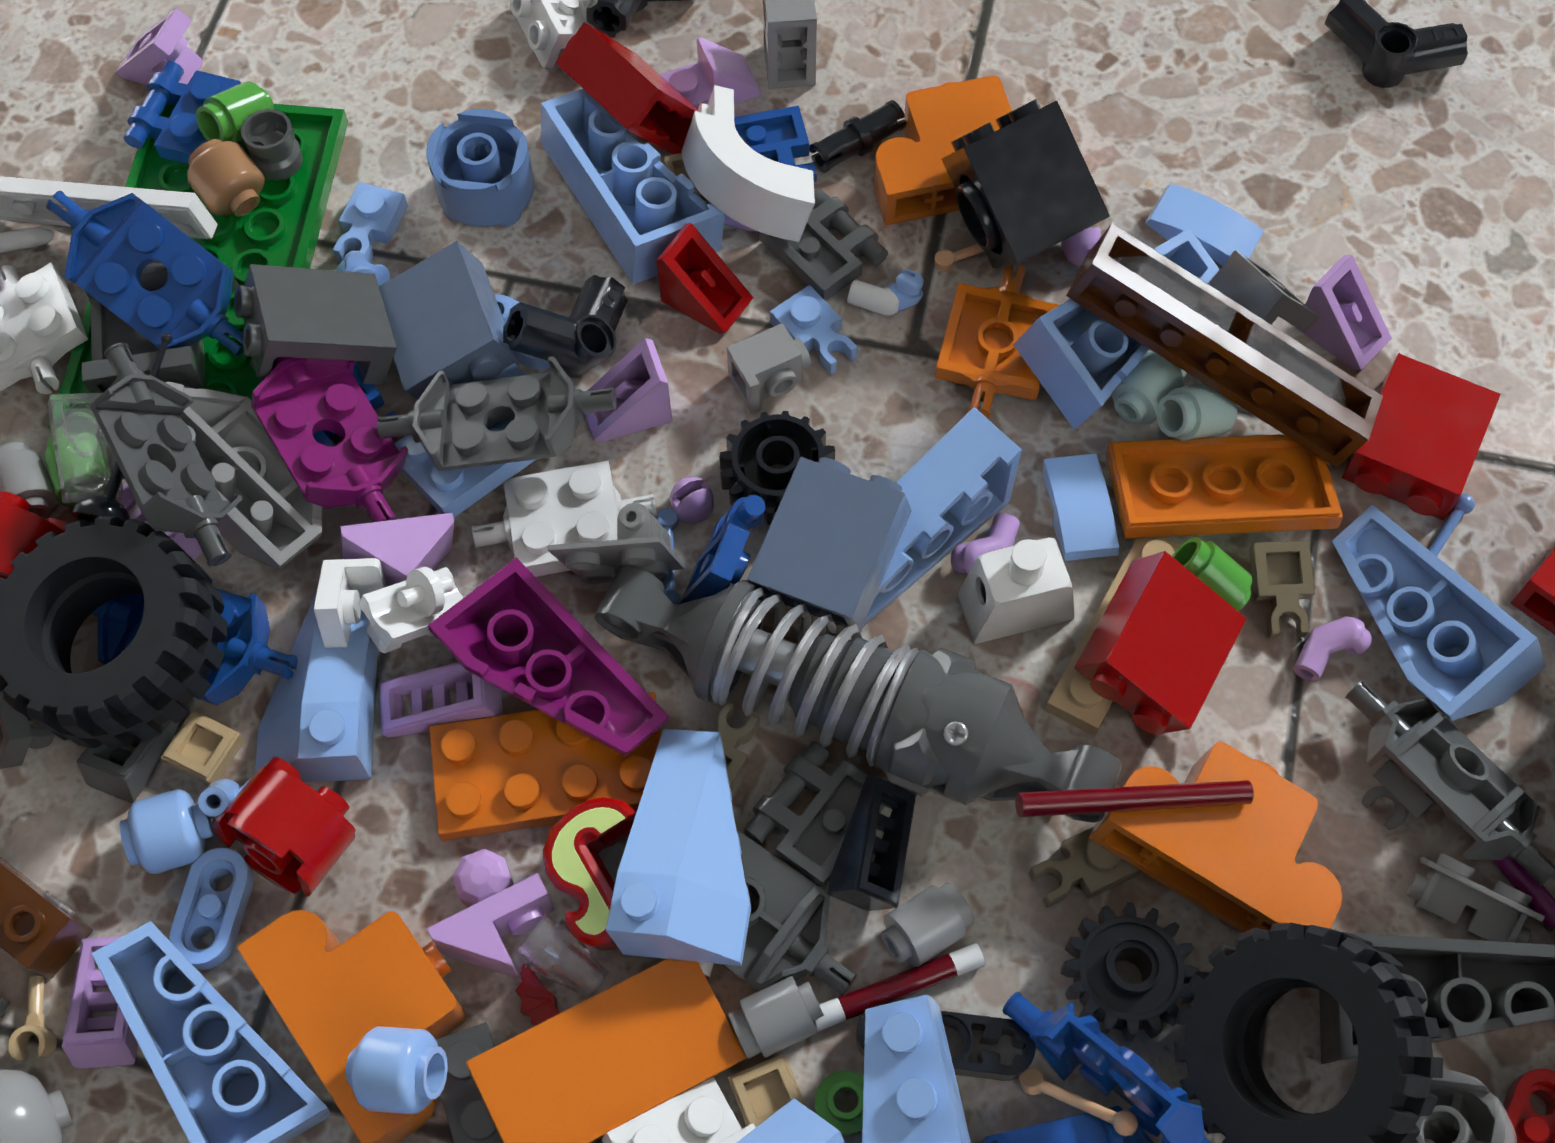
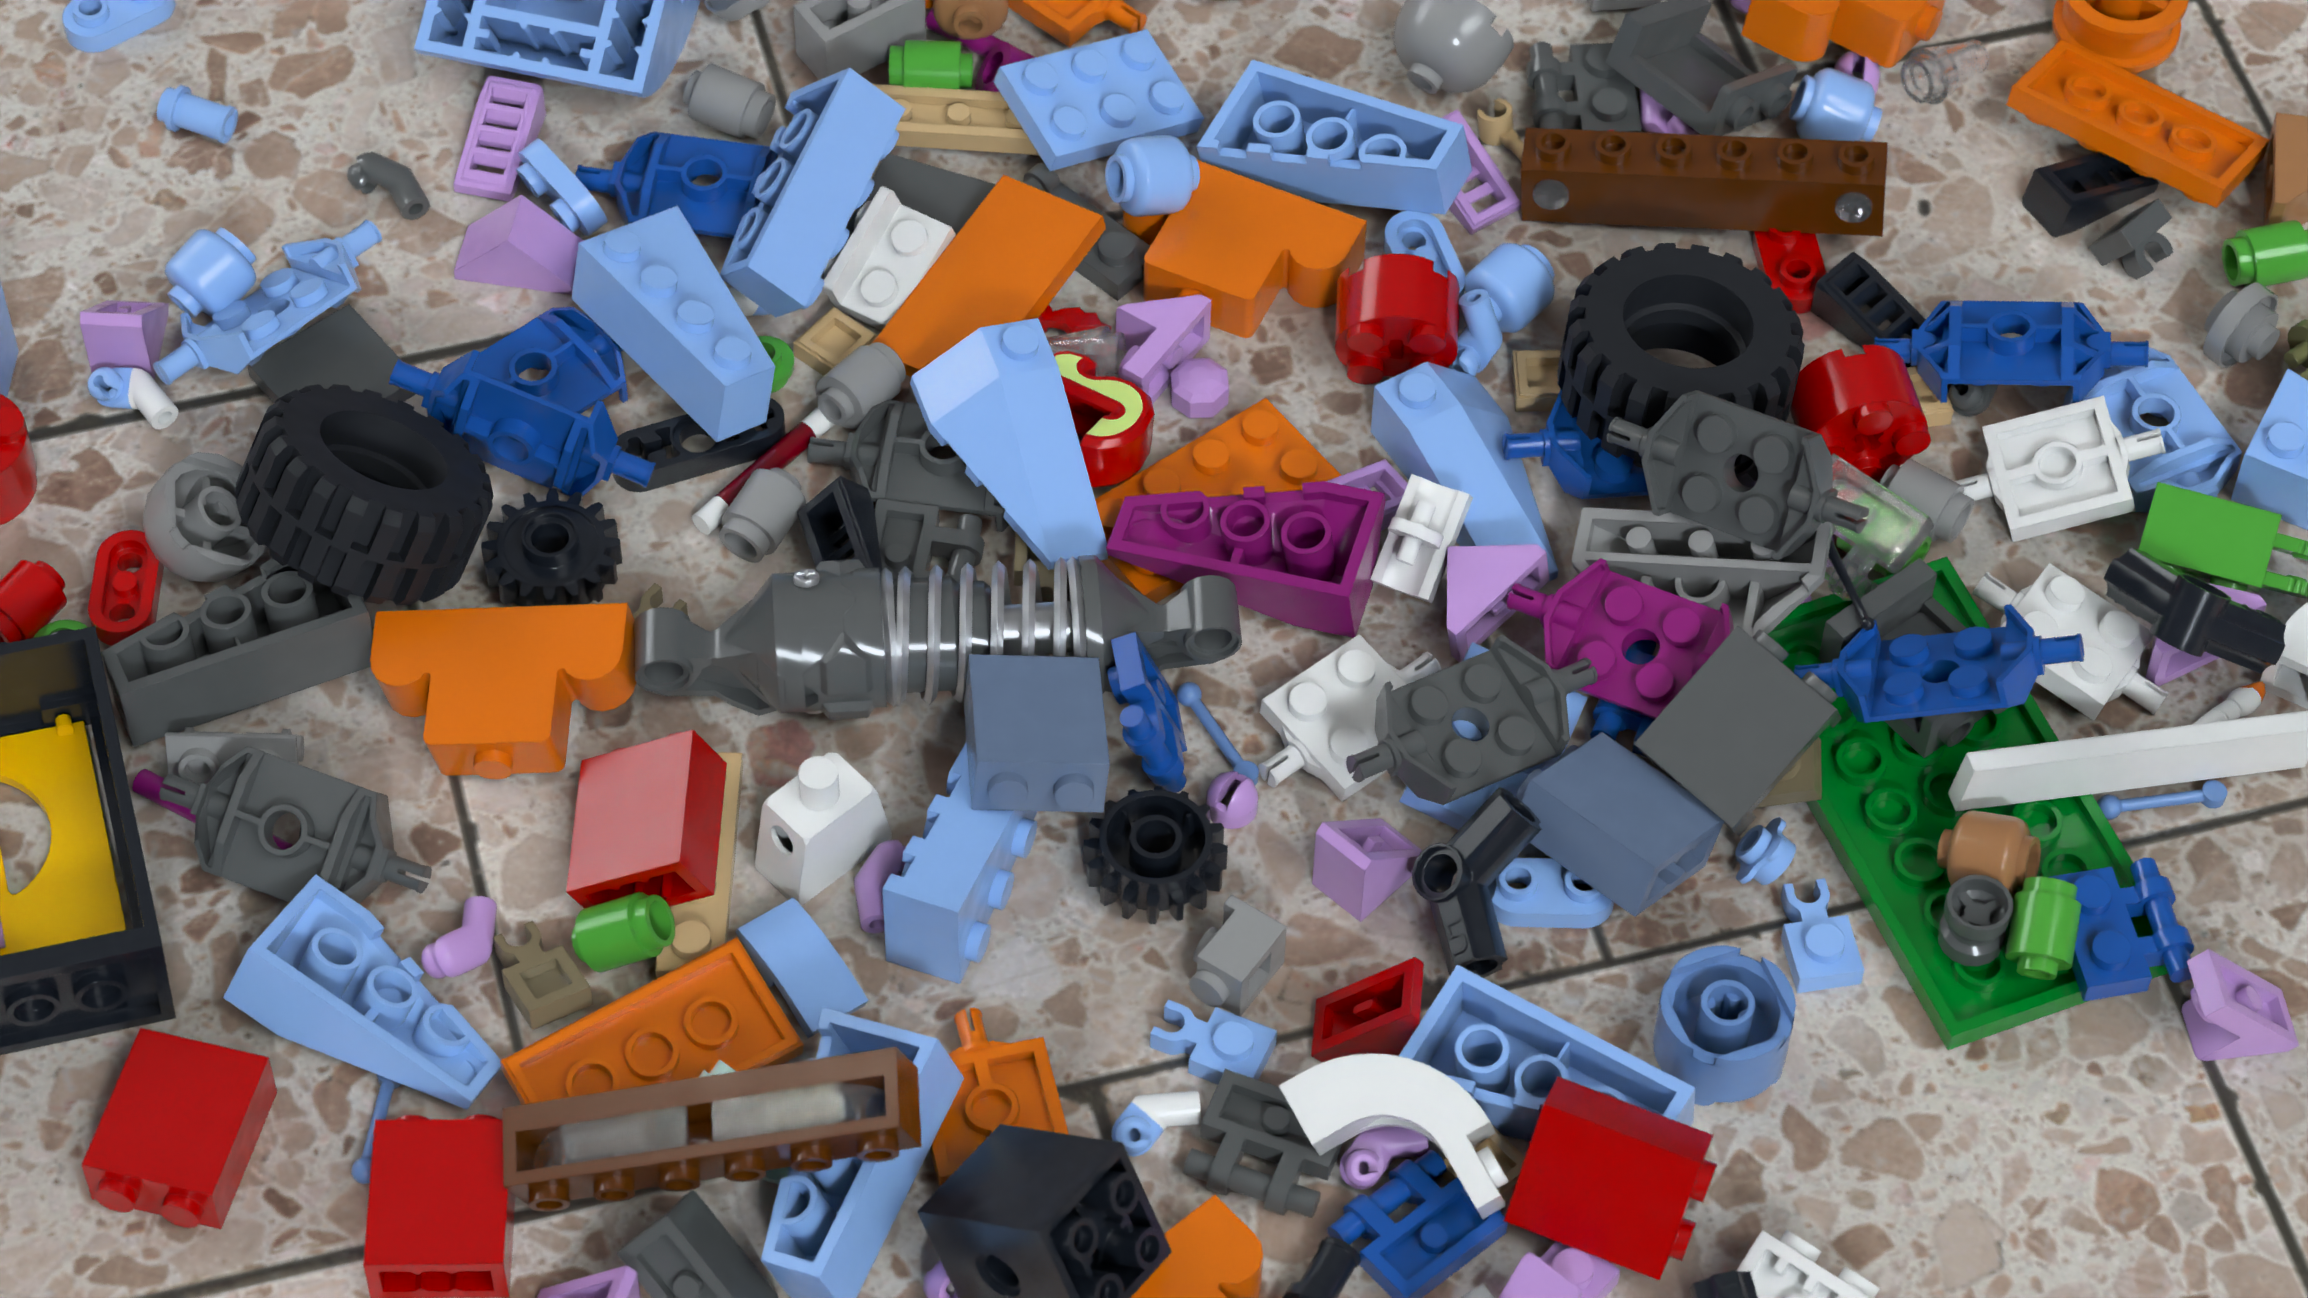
camera: 150 degrees right, 10 degrees down
(339, 593) = (1500, 504): white bracket -> none
(639, 543) = (1248, 658): light grey hinge -> none
(1133, 798) = (607, 624): dark red bar -> none

